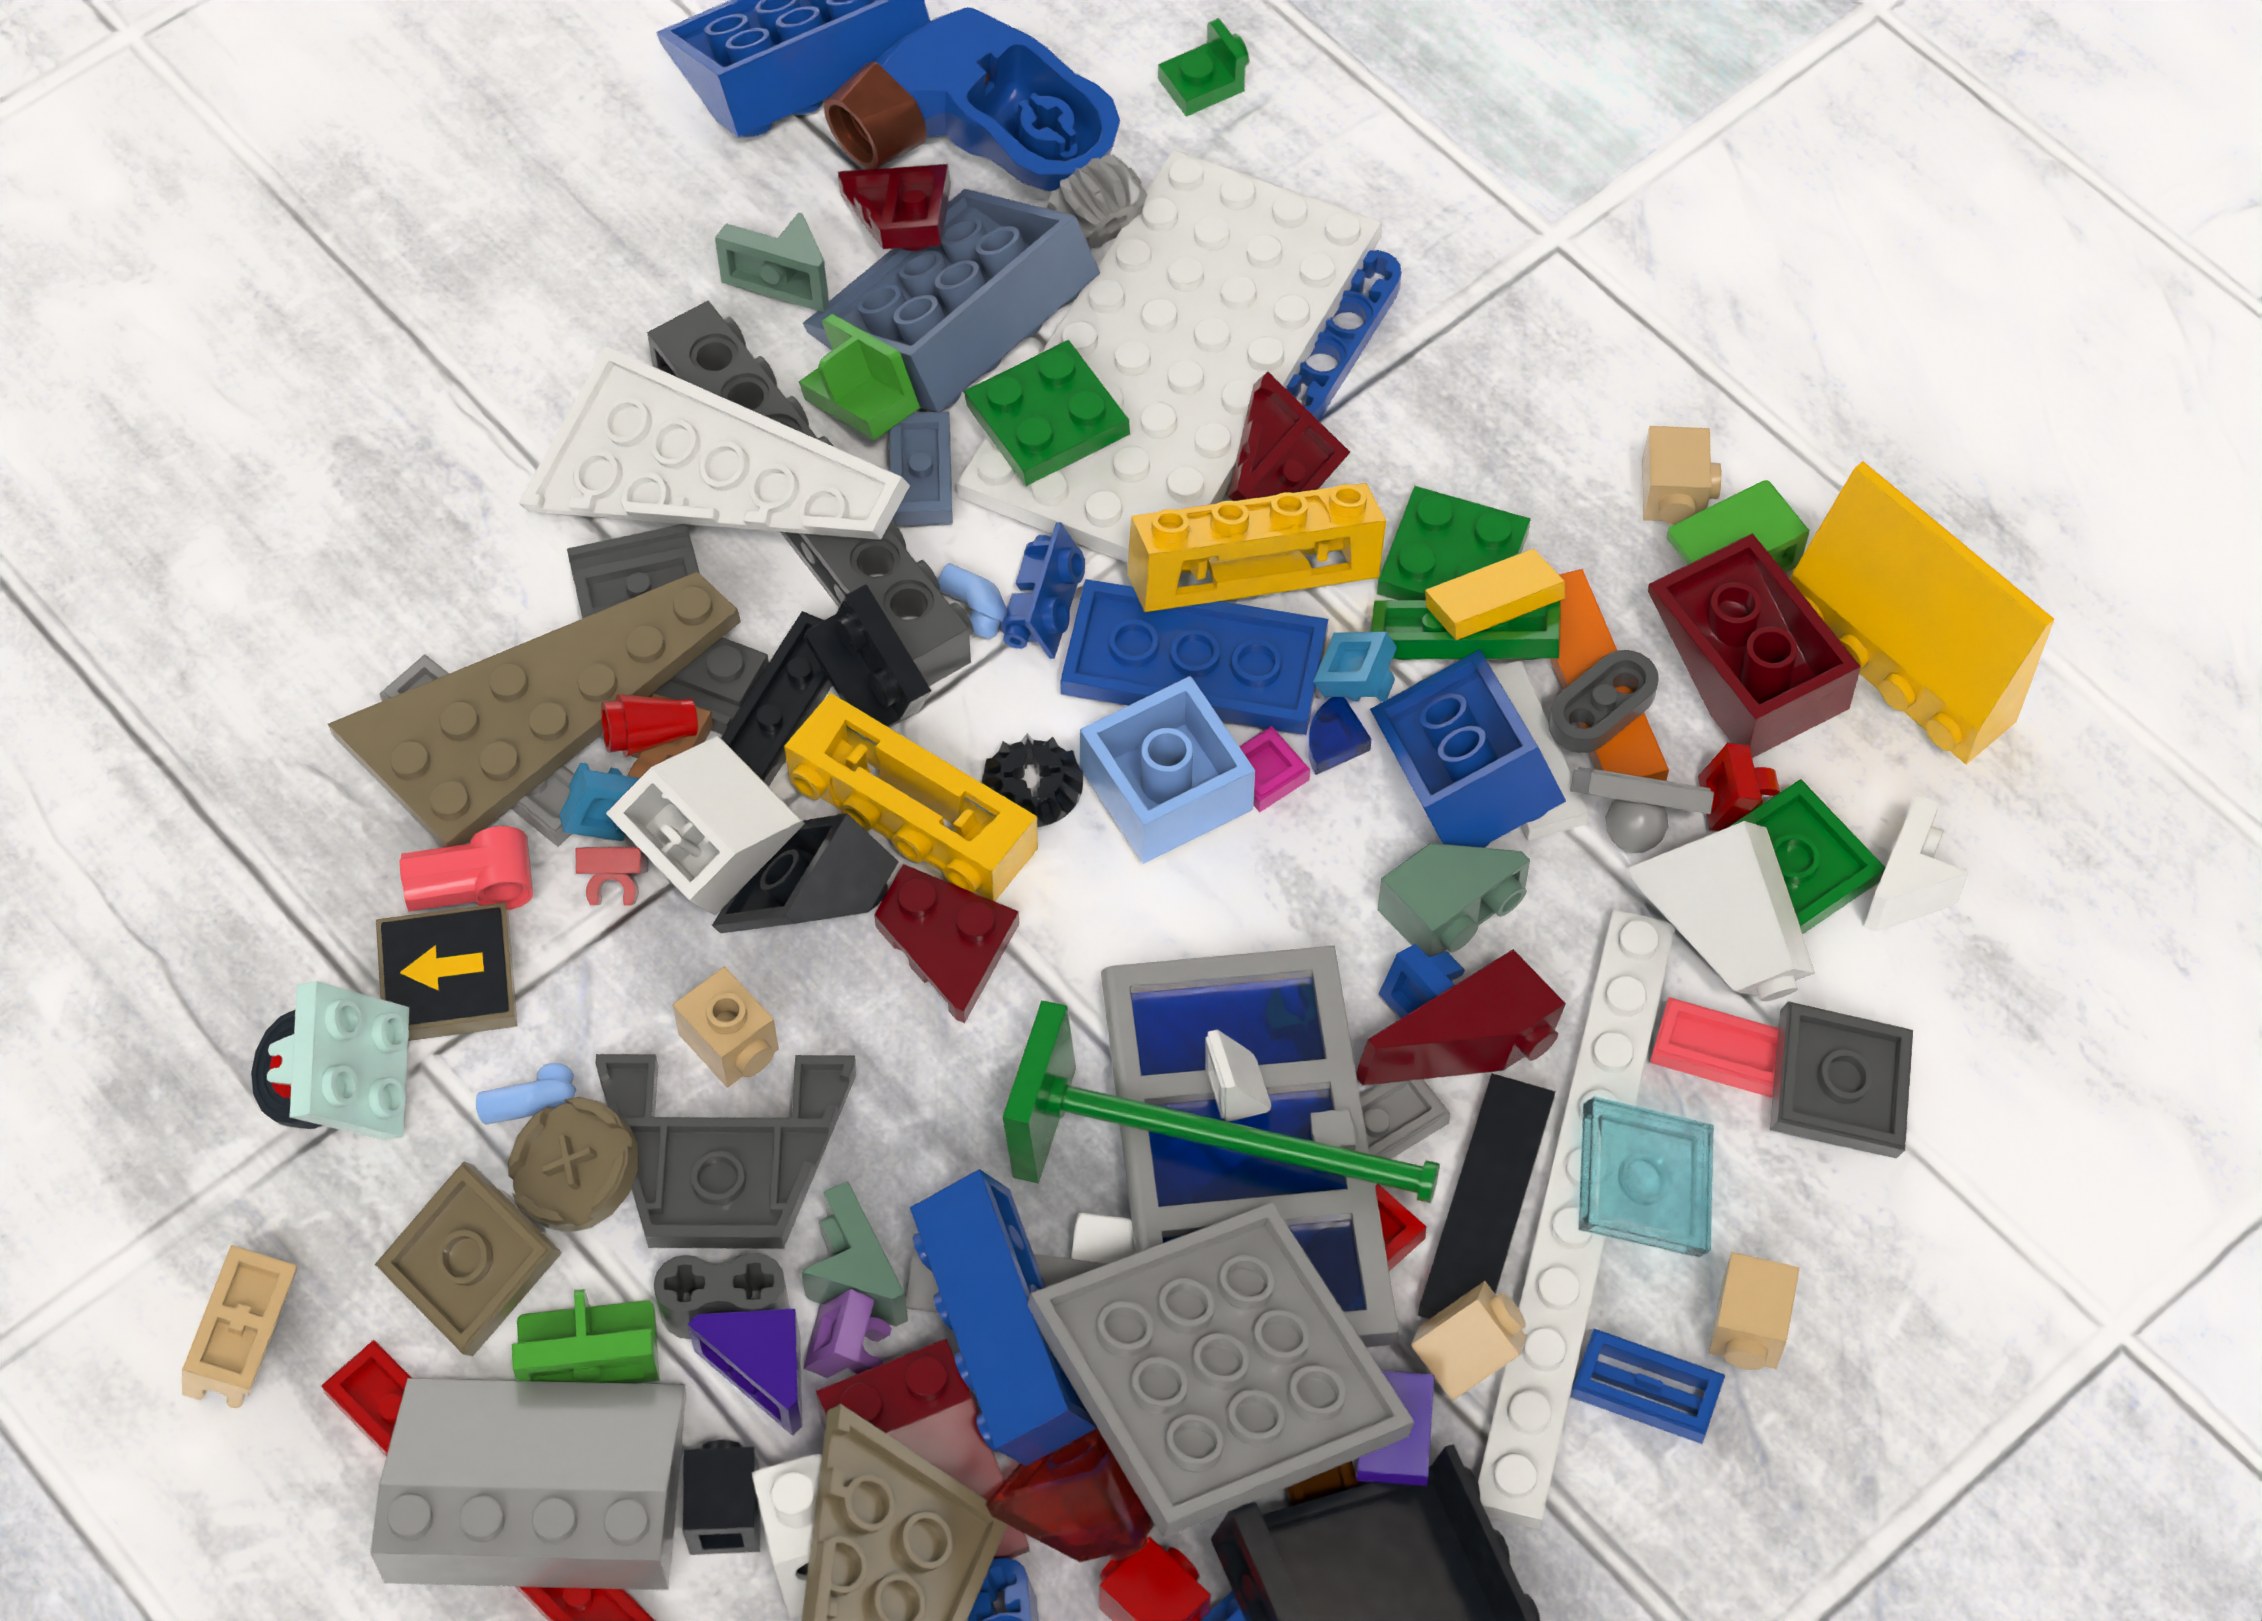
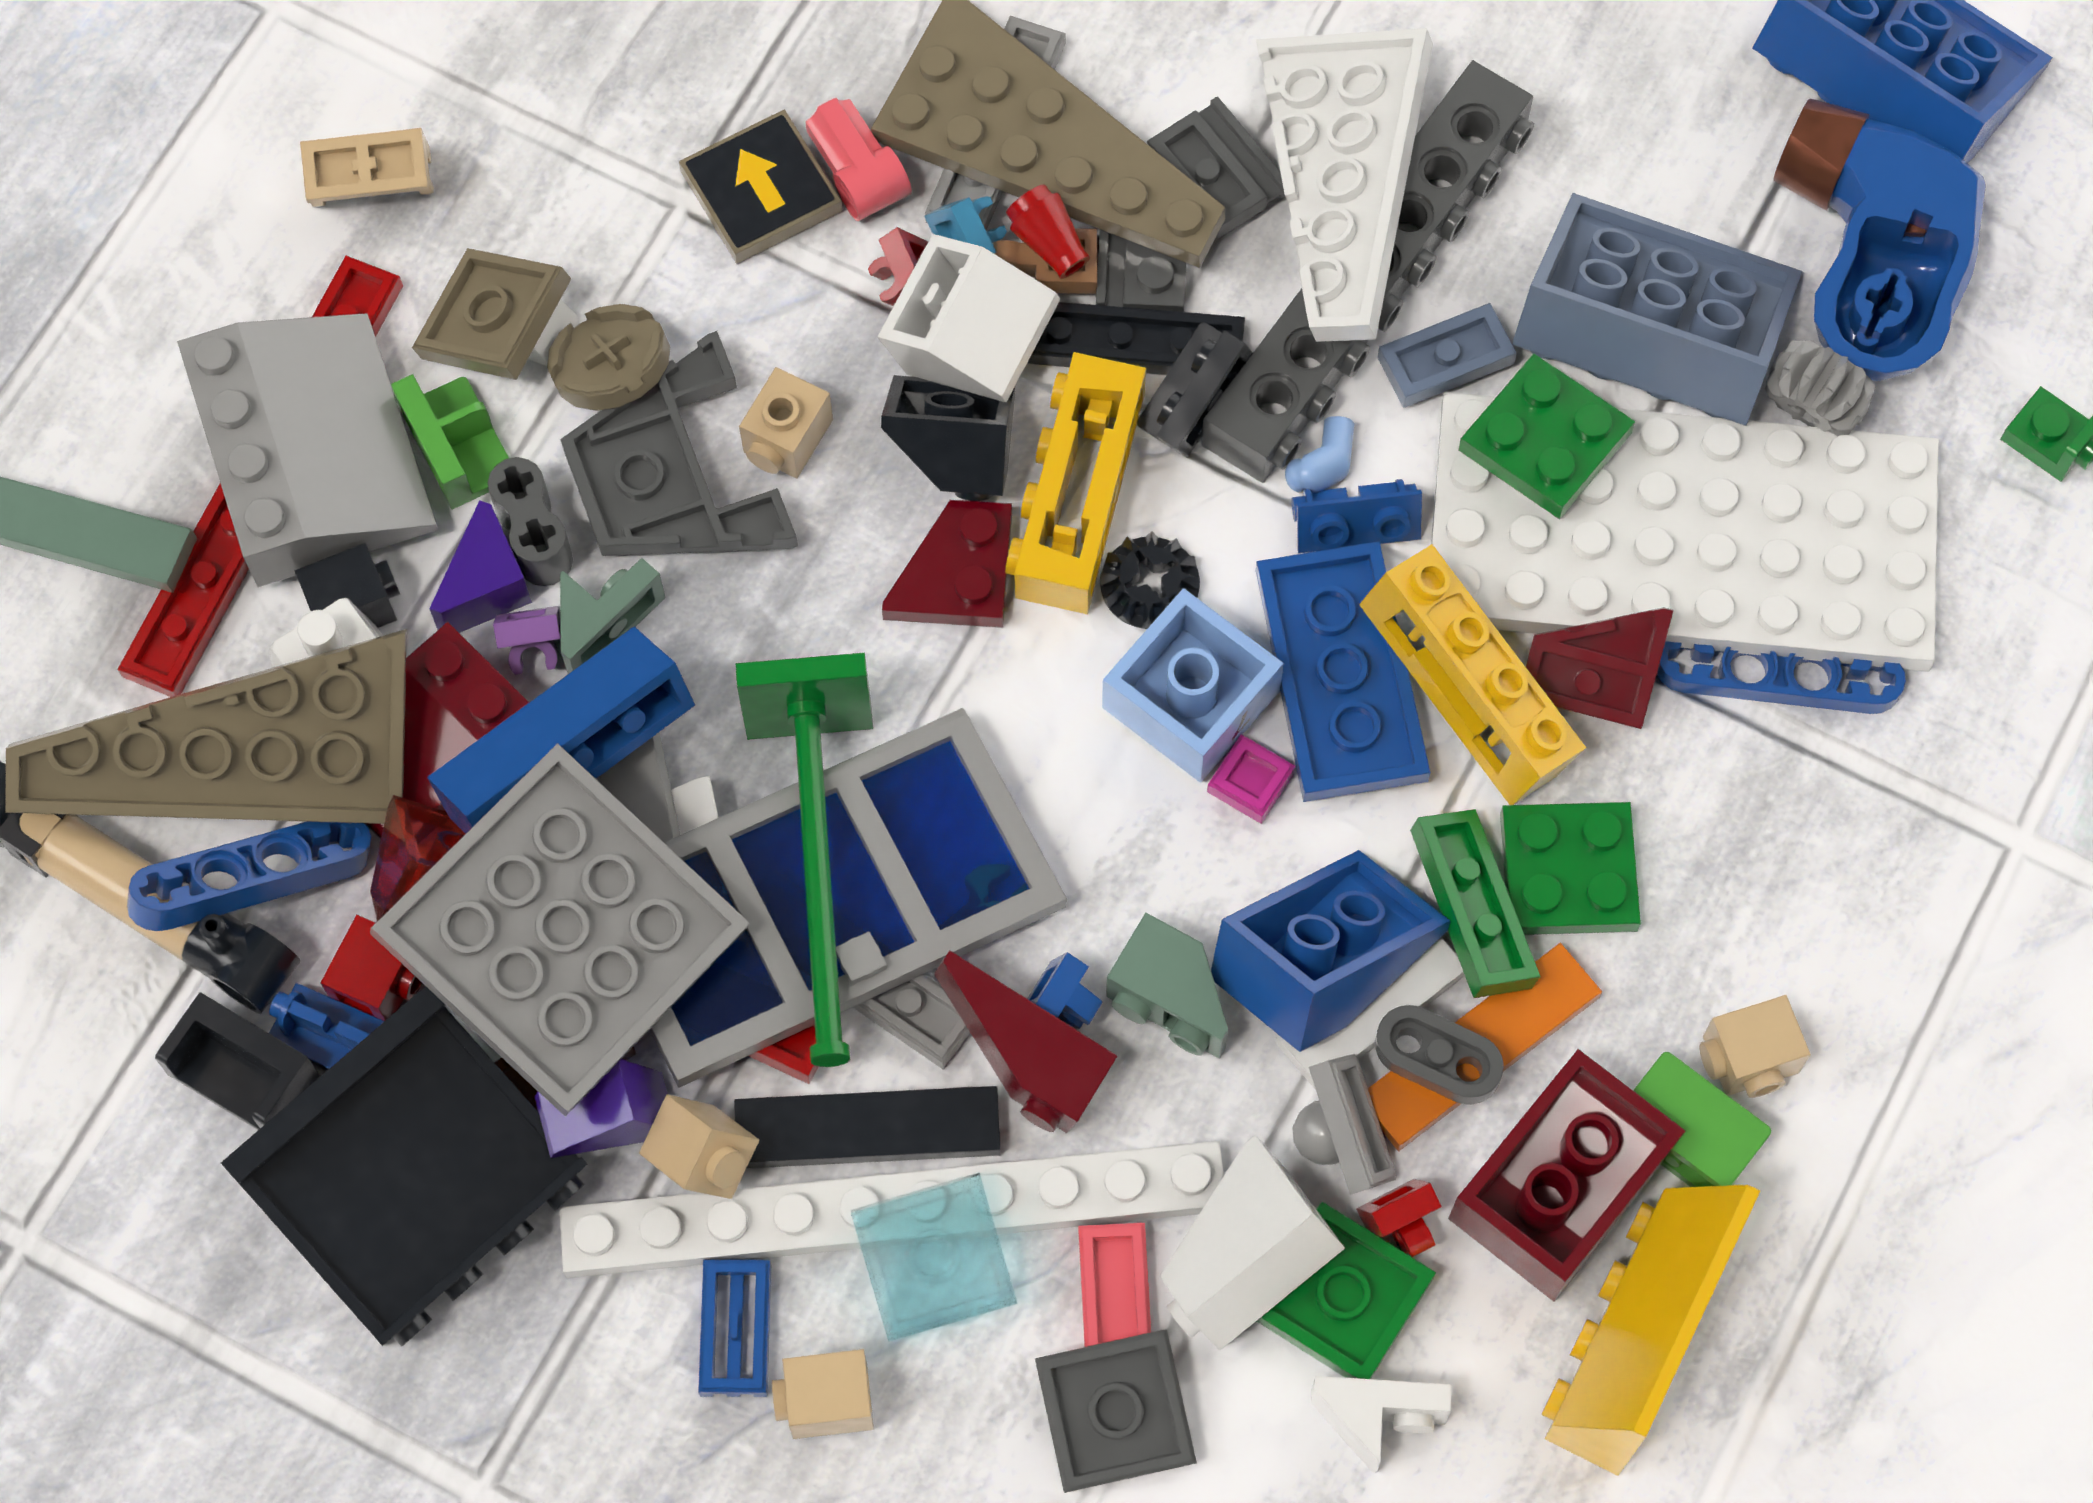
camera: 70 degrees right, 10 degrees up
(335, 1063) = (618, 140): light aqua plate -> none
(528, 1098) = (659, 299): light blue arm -> none
(775, 267) = (1619, 147): sand green slope -> none
(860, 381) = (1504, 264): bright green panel -> none
(899, 203) = (1742, 220): dark red wing -> none
(1234, 1078) = (875, 852): white slope -> none
(1336, 735) = (1313, 827): clear blue tile -> none
(1357, 666) = (1383, 816): dark azure tile -> none
(1495, 594) = (1514, 912): yellow tile -> none

